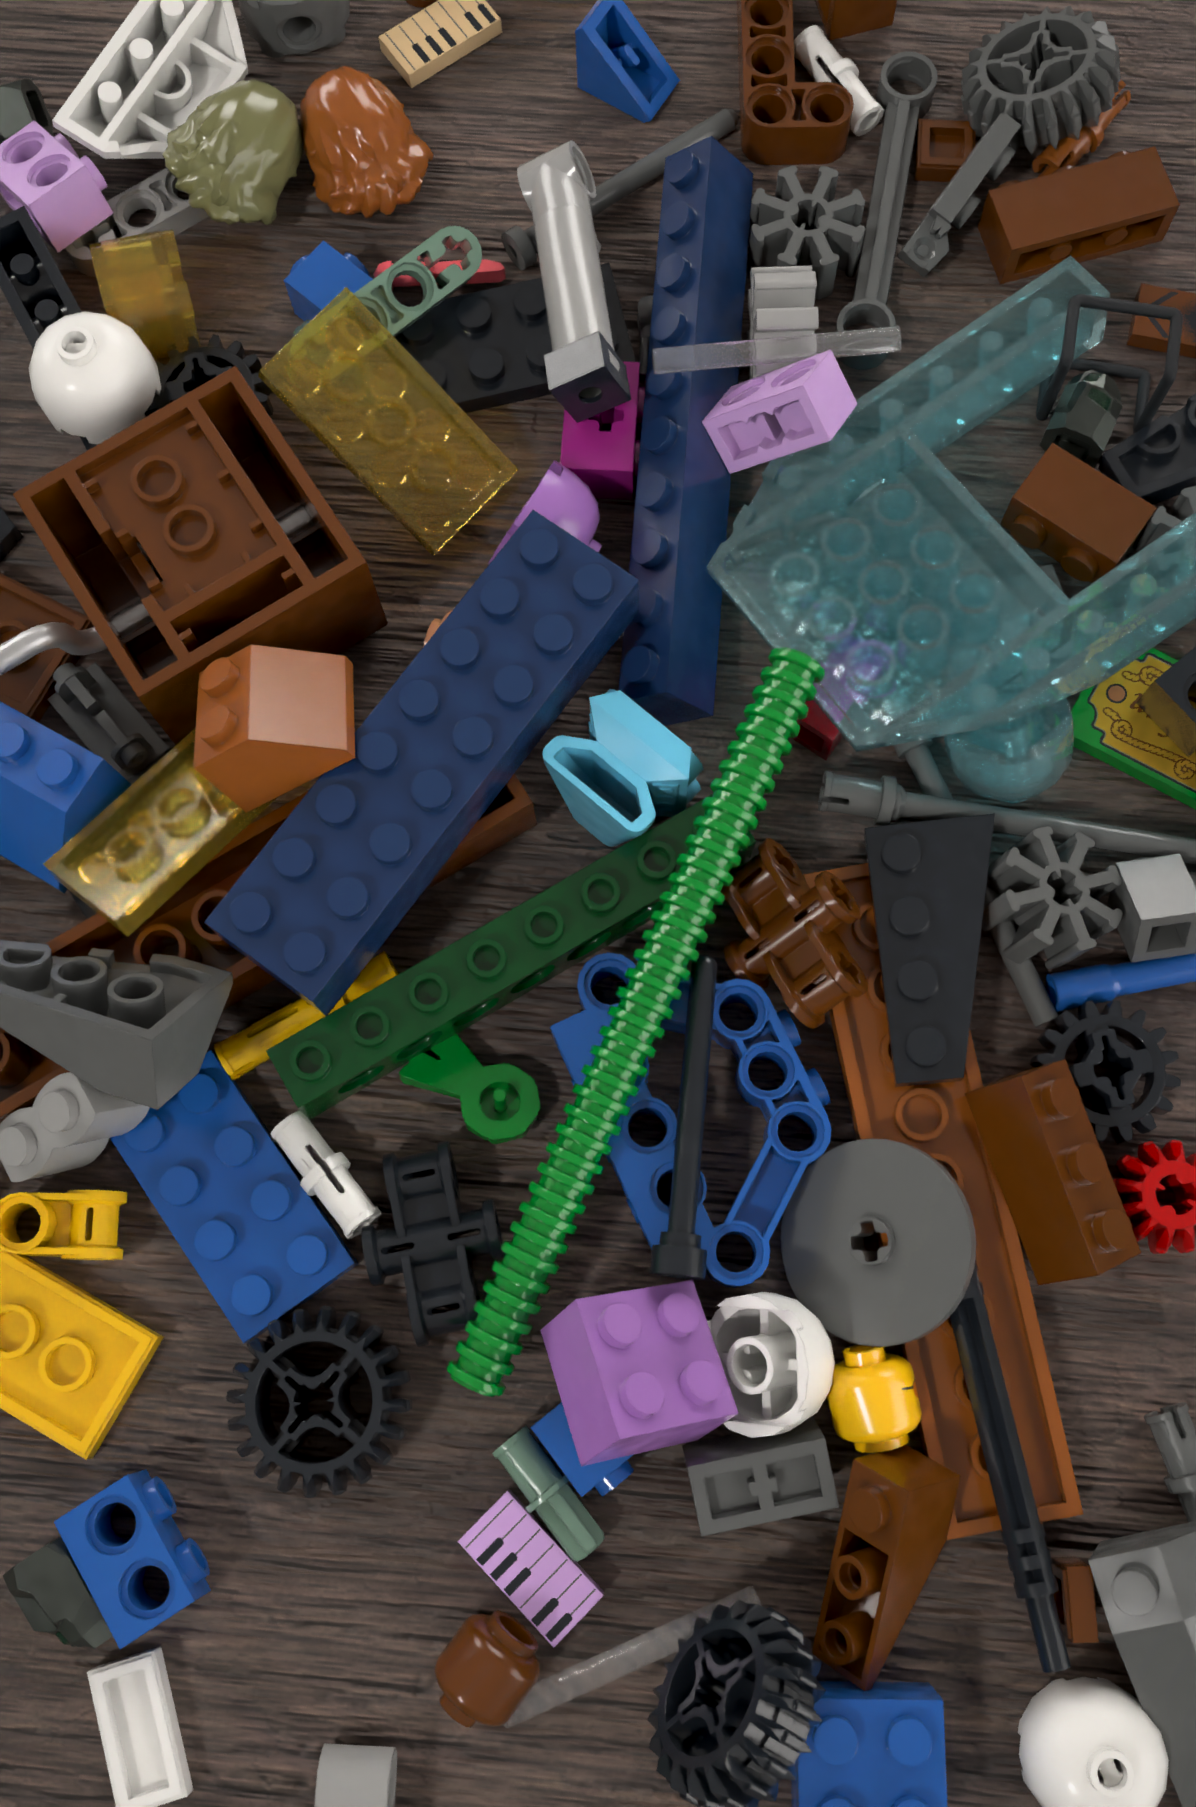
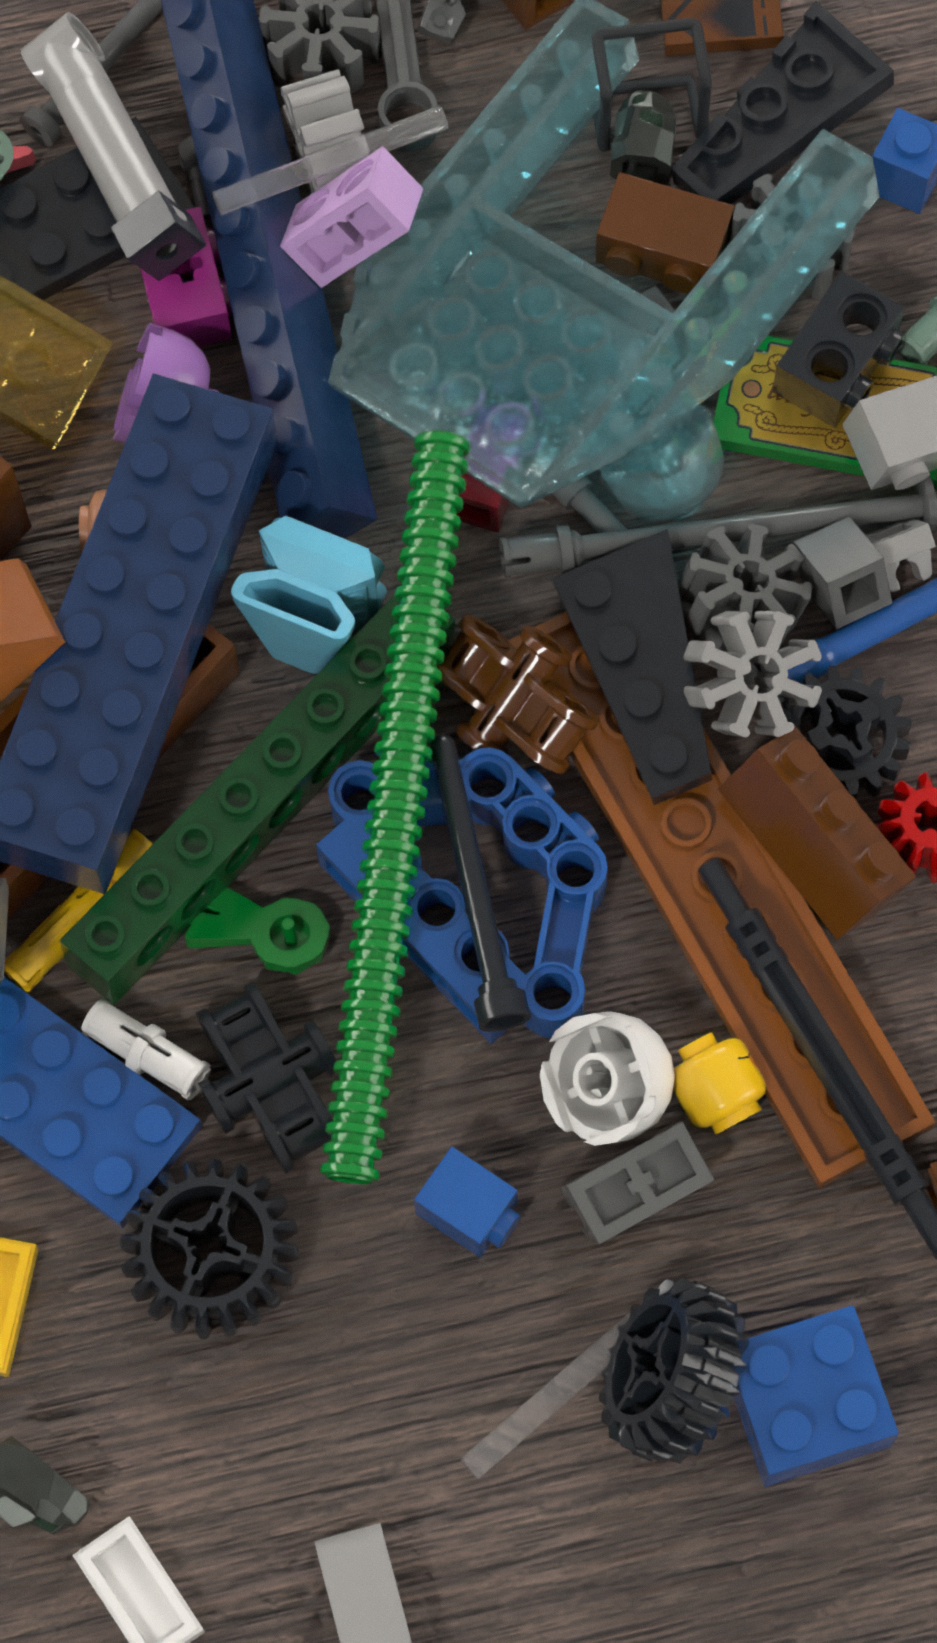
camera: 20 degrees left, 5 degrees down
(116, 1566) = (73, 1447): blue brick -> none
(487, 1669) = (442, 1425): reddish brown head -> none
(531, 1568) = (453, 1334): lavender tile -> none
(550, 1495) = (449, 1264): sand green axle -> none
(637, 1371) = (495, 1116): medium lavender brick -> none
(882, 1556) = (767, 1212): reddish brown slope -> none
(904, 1286) = (720, 960): dark grey piece -> none
(1068, 980) = (747, 648): none -> light grey gear

